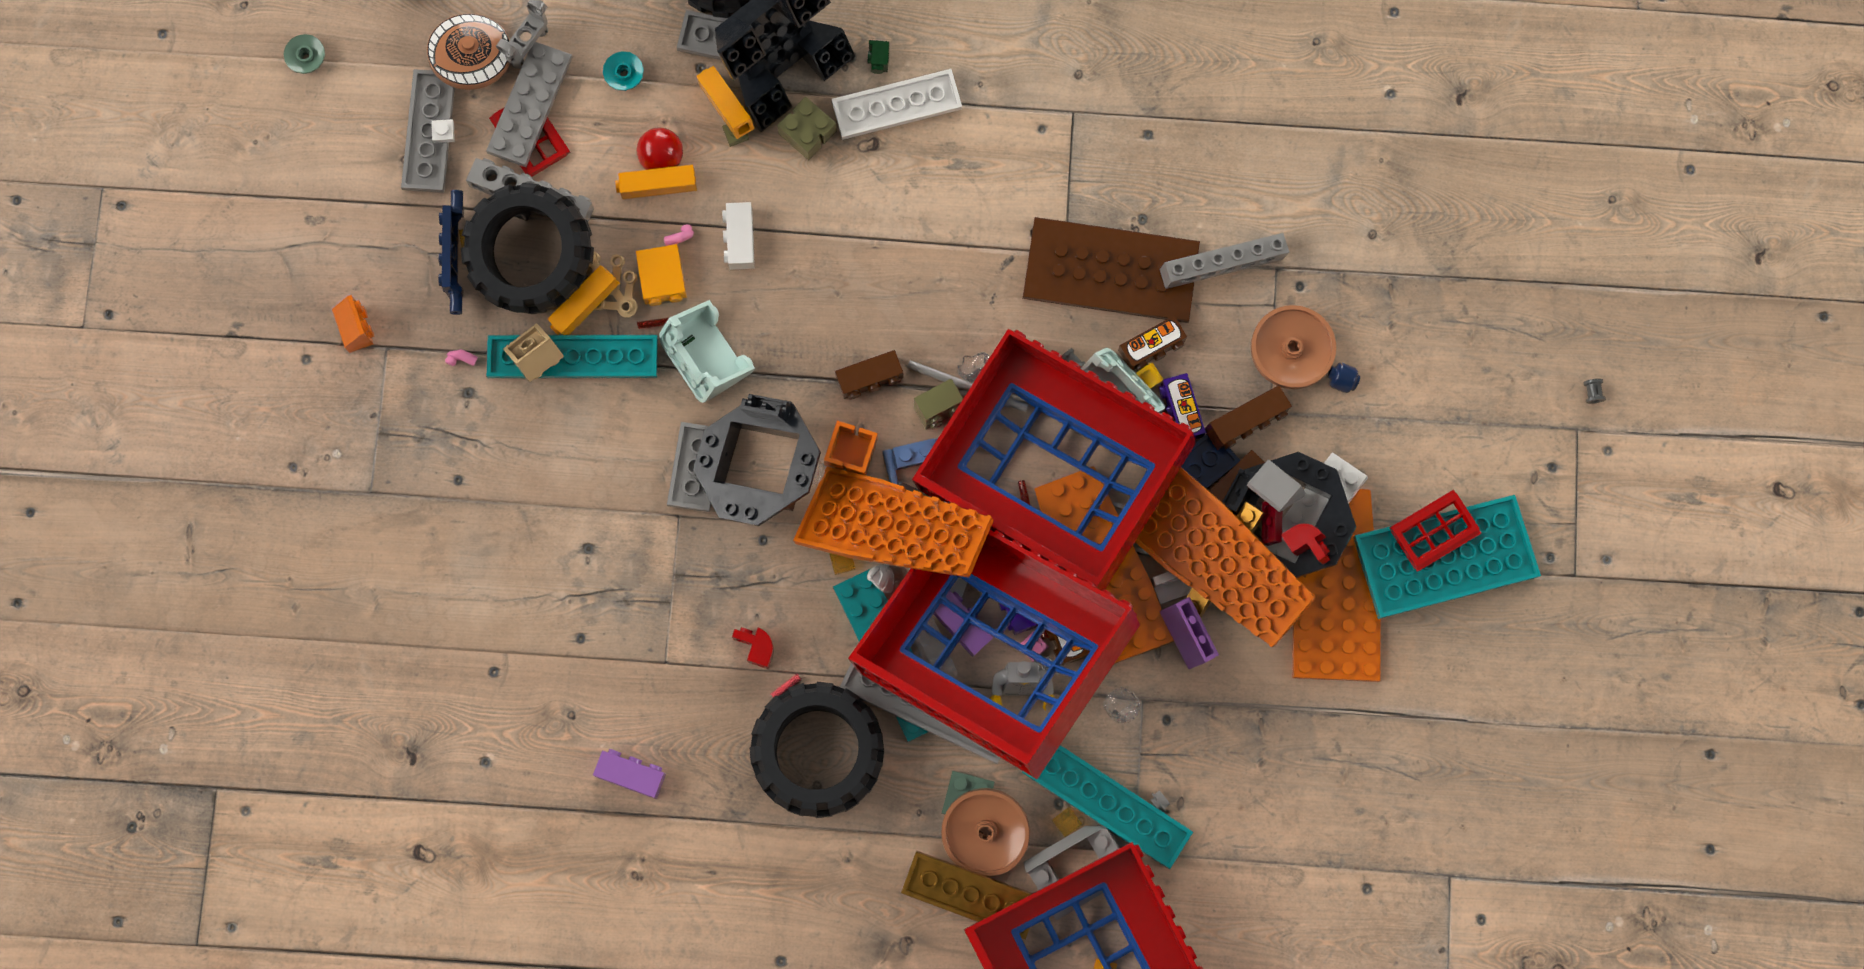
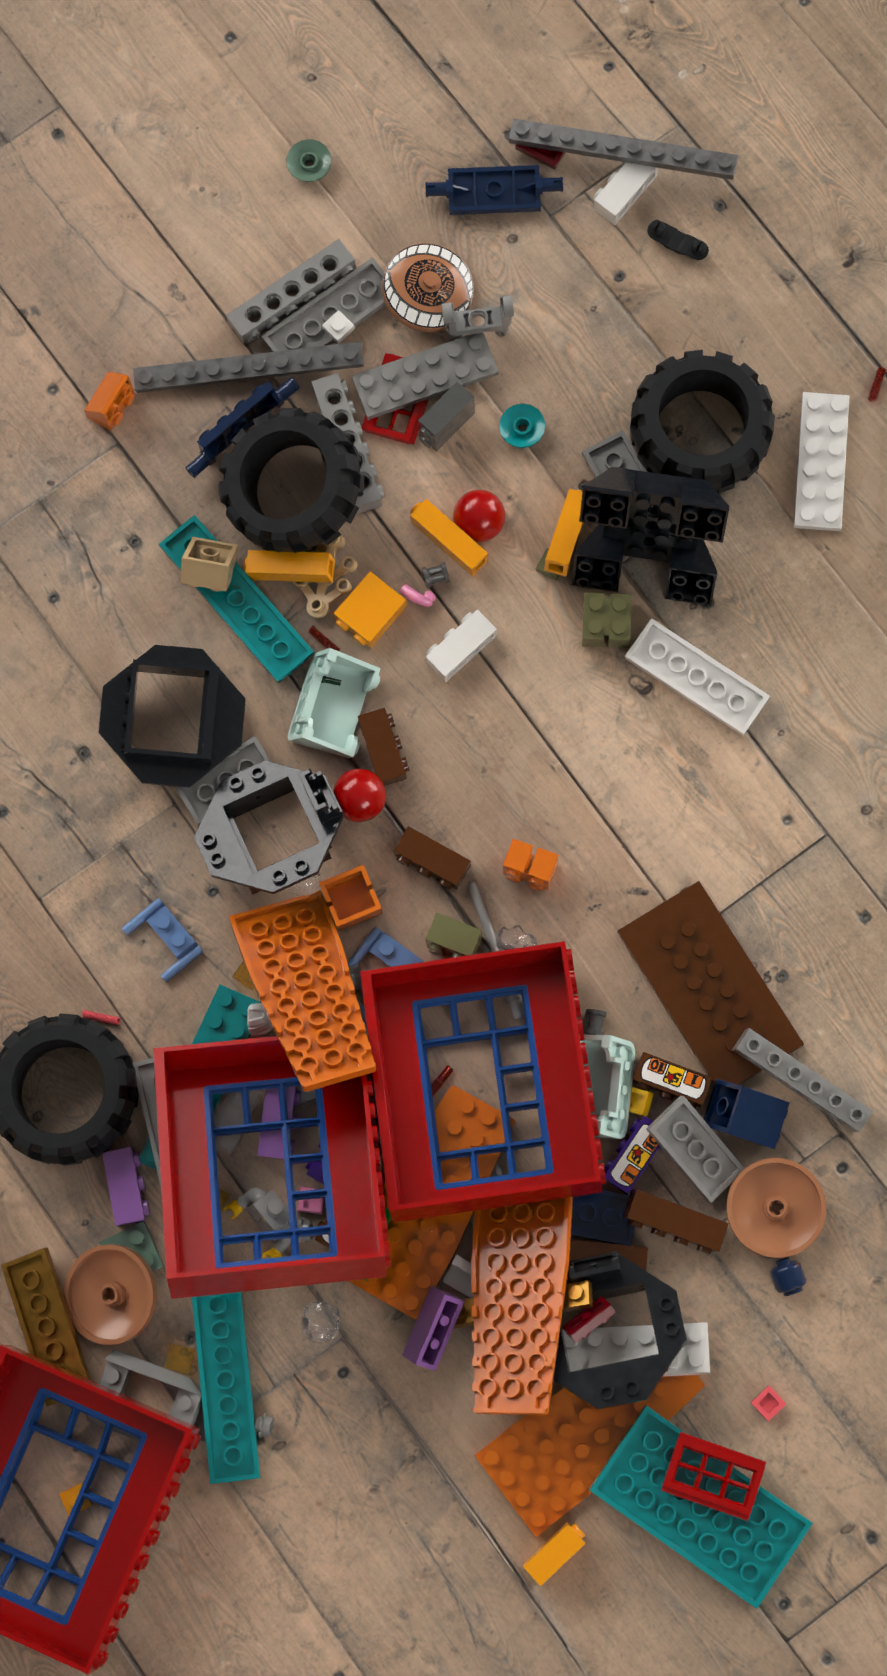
camera: 60 degrees right, 0 degrees up
(389, 91) = (334, 254): none -> light grey brick
(415, 214) = (248, 367): none -> flat silver plate
(457, 355) = (160, 509): bright pink arm -> none
(573, 113) = (446, 417): none -> dark grey brick
(650, 434) = (219, 721): none -> black hinge
(674, 219) = (427, 572): none -> dark grey bush
(761, 646) = (118, 967): red brick -> none
(764, 344) = (383, 746): none -> reddish brown brick
(767, 591) = (170, 932): none -> medium blue plate
(786, 382) = (360, 795): none -> red piece
(878, 56) = (726, 625): dark green brick -> none
(919, 762) = (126, 1186): none -> medium lavender brick
(928, 318) = (518, 862): none -> orange piece
(1212, 365) = (695, 1149): none -> light grey plate
(1215, 315) = (746, 1113): none -> dark blue slope
(1276, 486) = (621, 1296): light grey slope -> none
(1306, 536) = (597, 1361): red brick -> none
(1402, 674) = (554, 1552): none -> light orange brick
(1414, 459) = (768, 1403): none -> coral plate

